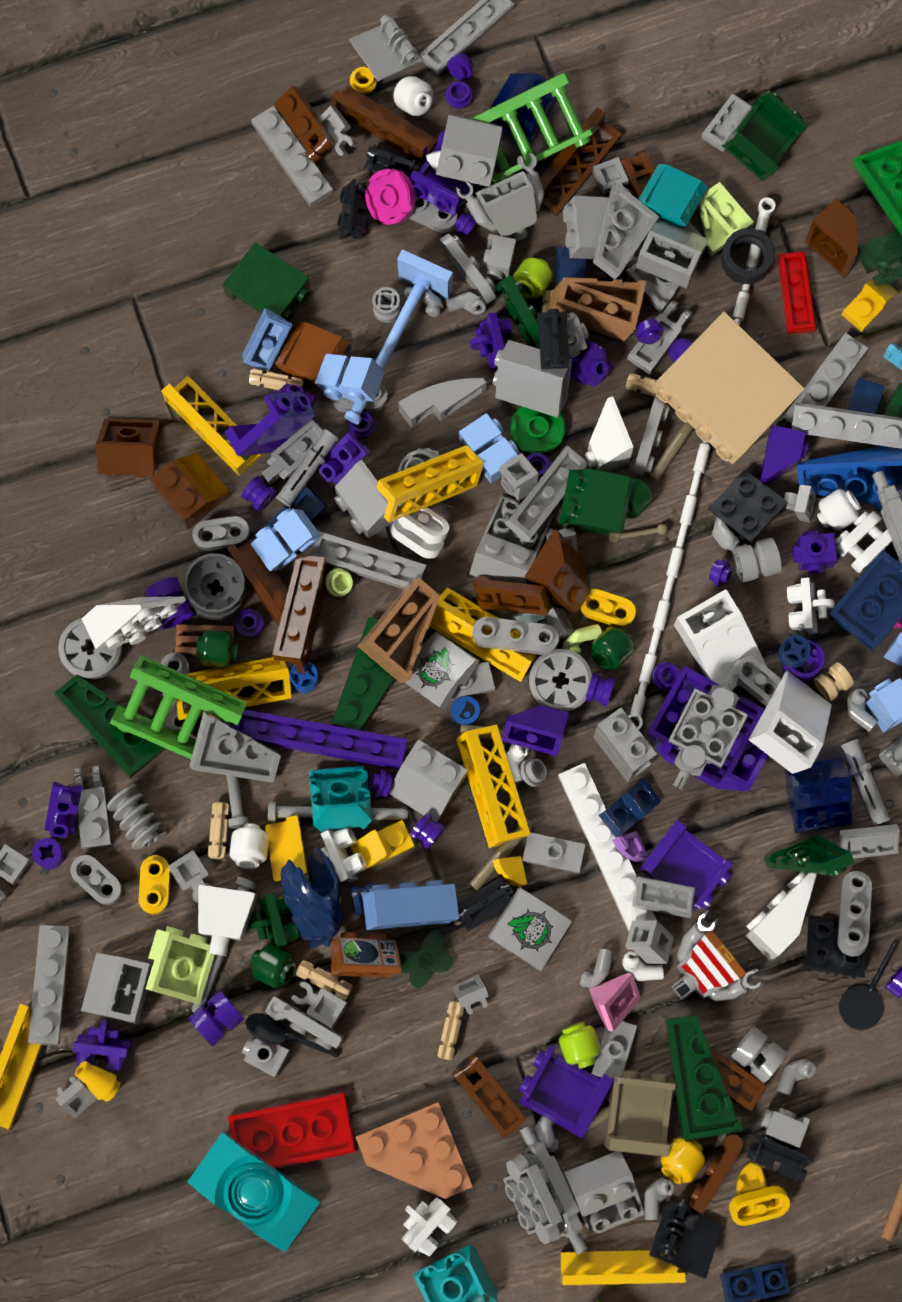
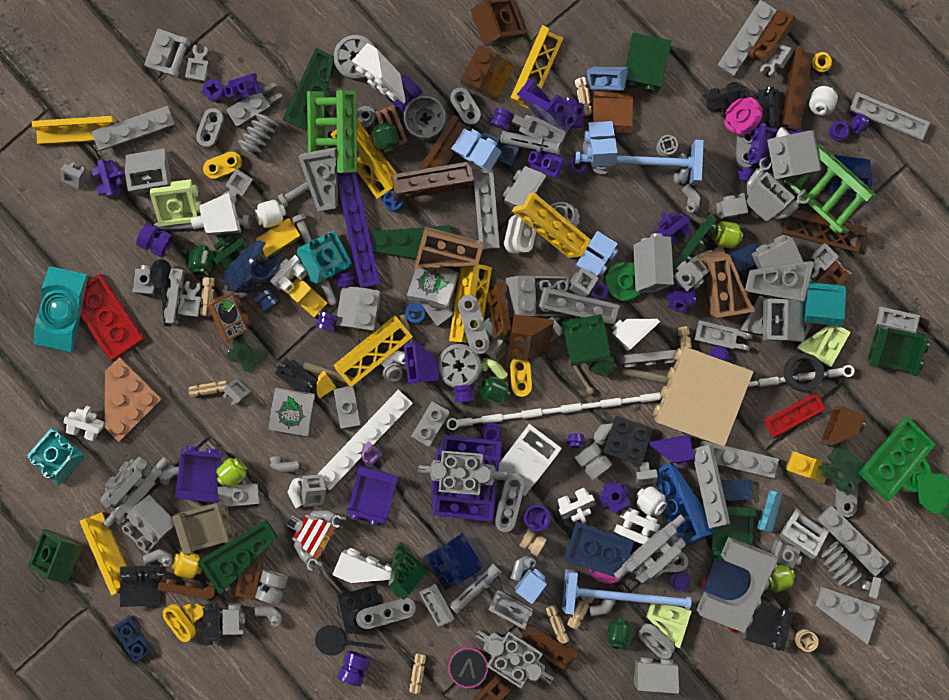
camera: 70 degrees right, 10 degrees up
(99, 1082) = (86, 188): yellow cone -> none
(218, 830) = (273, 190): tan axle -> none
(252, 631) = (414, 157): dark purple plate -> none
(338, 582) = (465, 196): yellowish green plate -> none
(386, 49) = (850, 67): light grey hinge -> none
(410, 905) = (272, 330): medium blue brick -> none
(440, 399) = (616, 209): light grey slope -> none
(468, 268) = (716, 189): light grey plate -> none
(490, 1097) = (177, 430): reddish brown plate -> none
(553, 339) = (679, 266): black hinge -> none
(615, 999) = (268, 483): bright pink slope -> none
(630, 808) = (395, 444): dark blue slope -> none
(649, 331) = (720, 327): dark purple plate -> none
(663, 897) = (345, 488): light grey plate -> none
(793, 725) = (490, 527): white slope -> none
(799, 647) = (538, 511): dark blue wheel -> none

